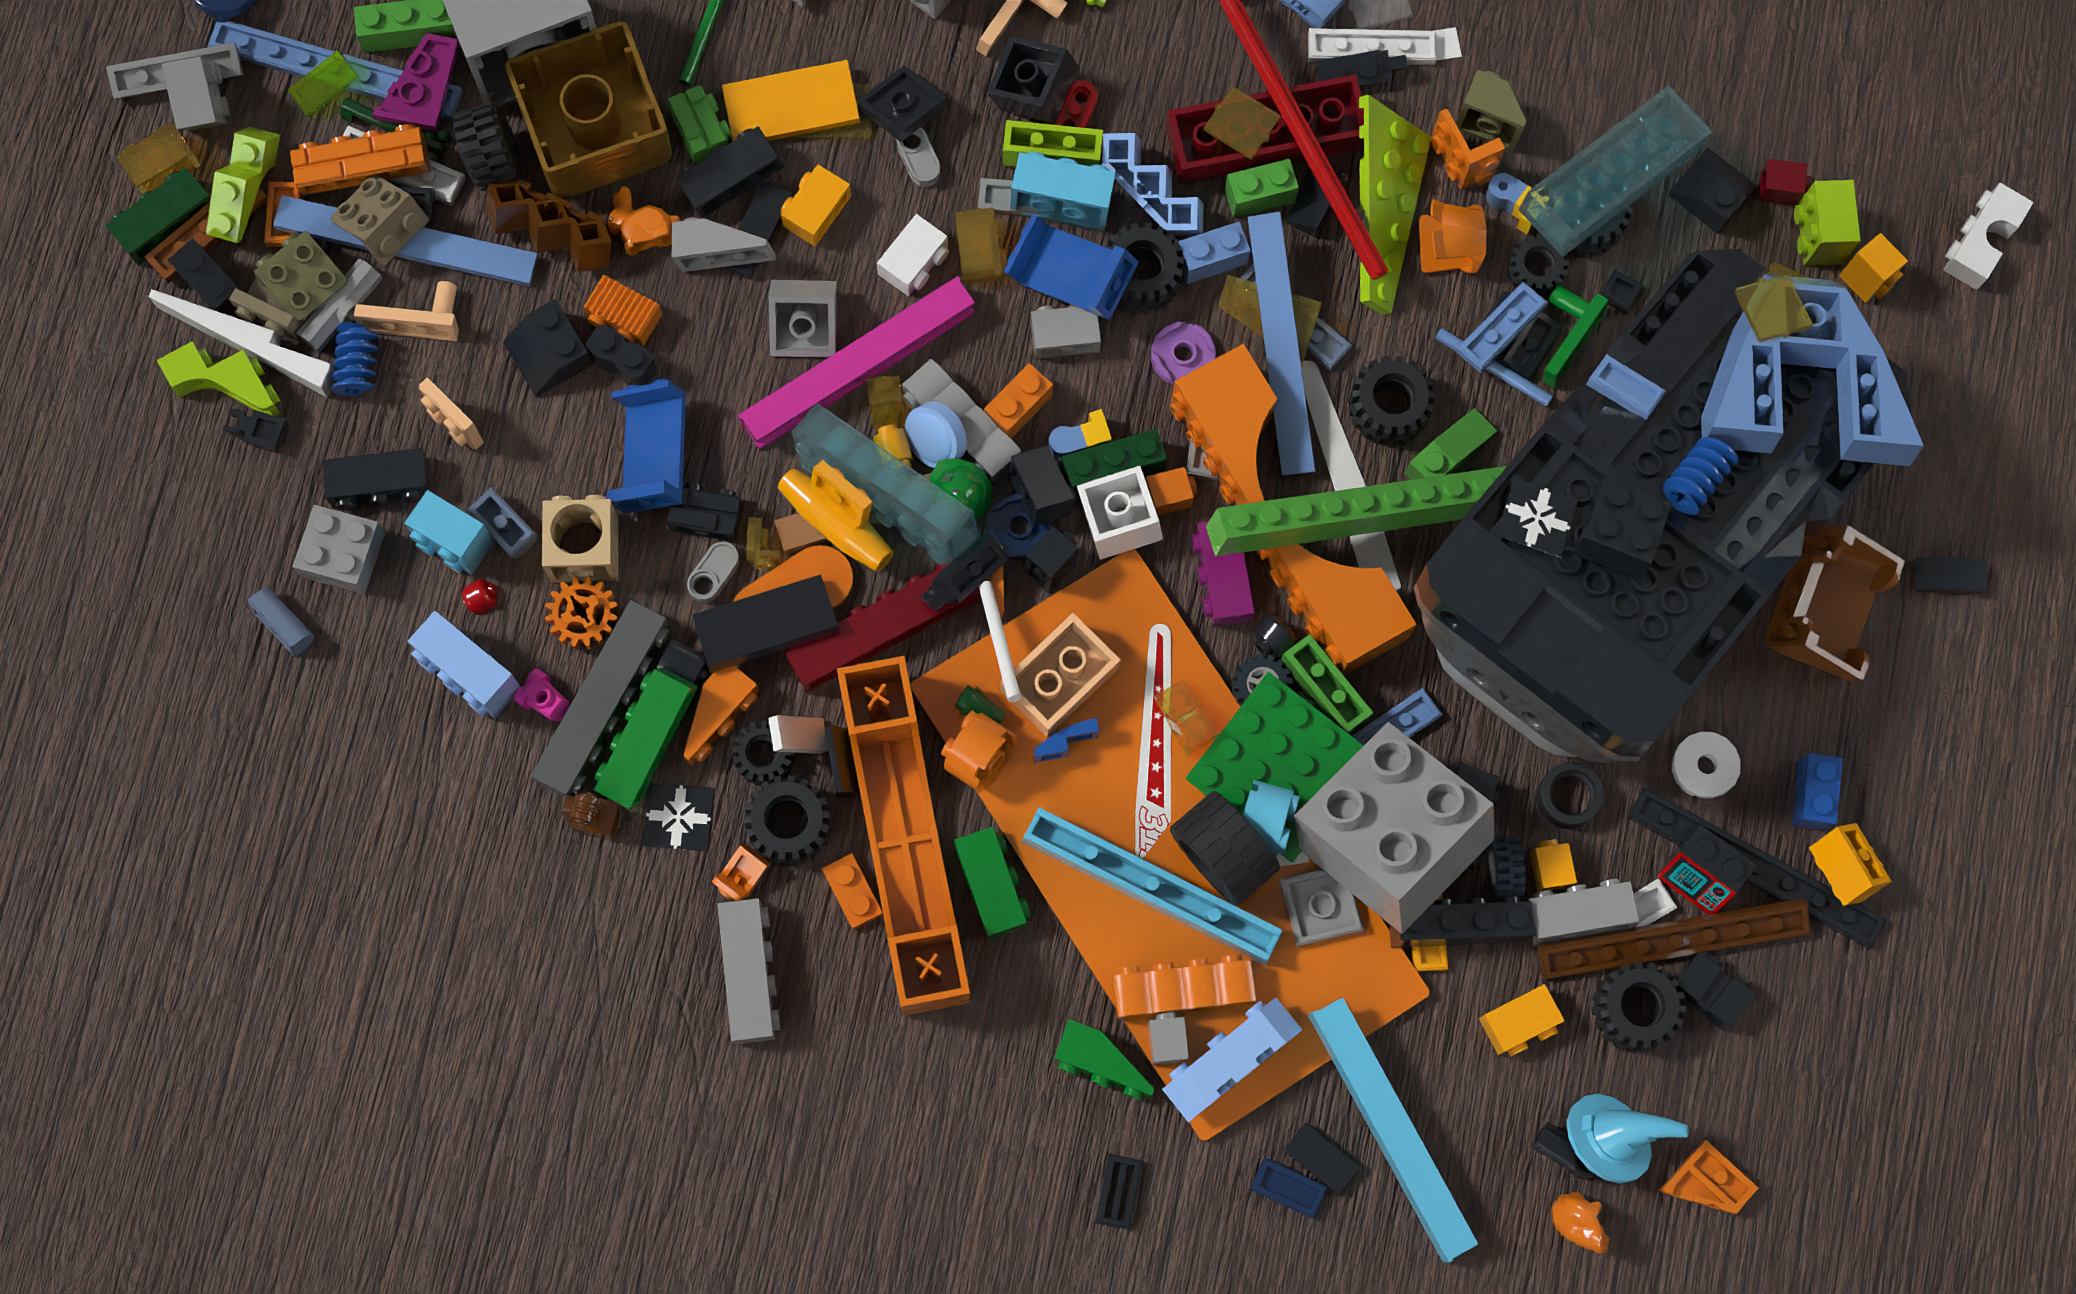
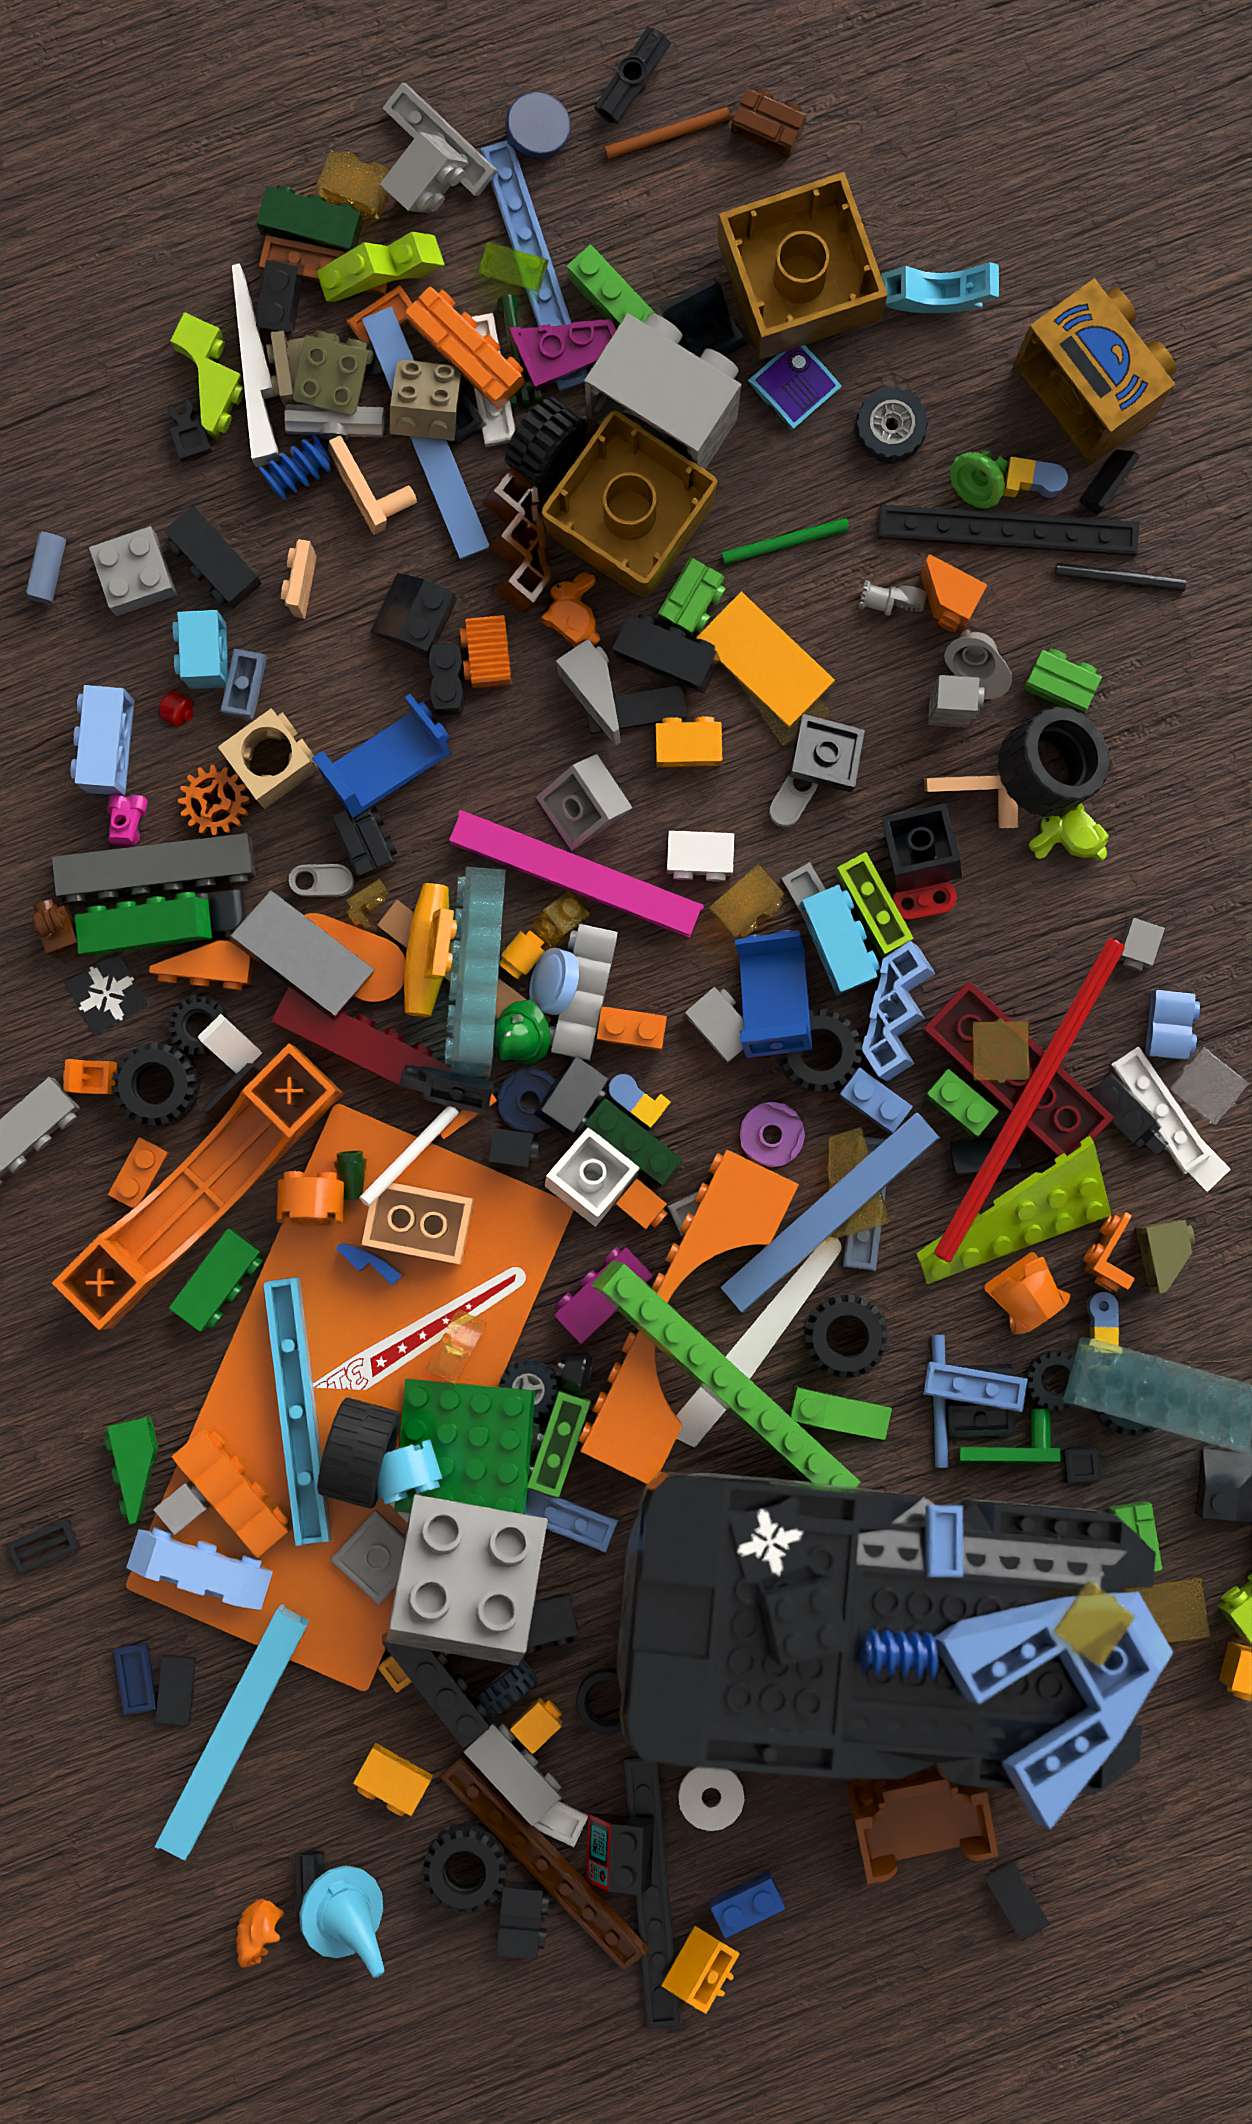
camera: 65 degrees right, 10 degrees up
(1710, 1181) = (364, 2013): orange wing -> none

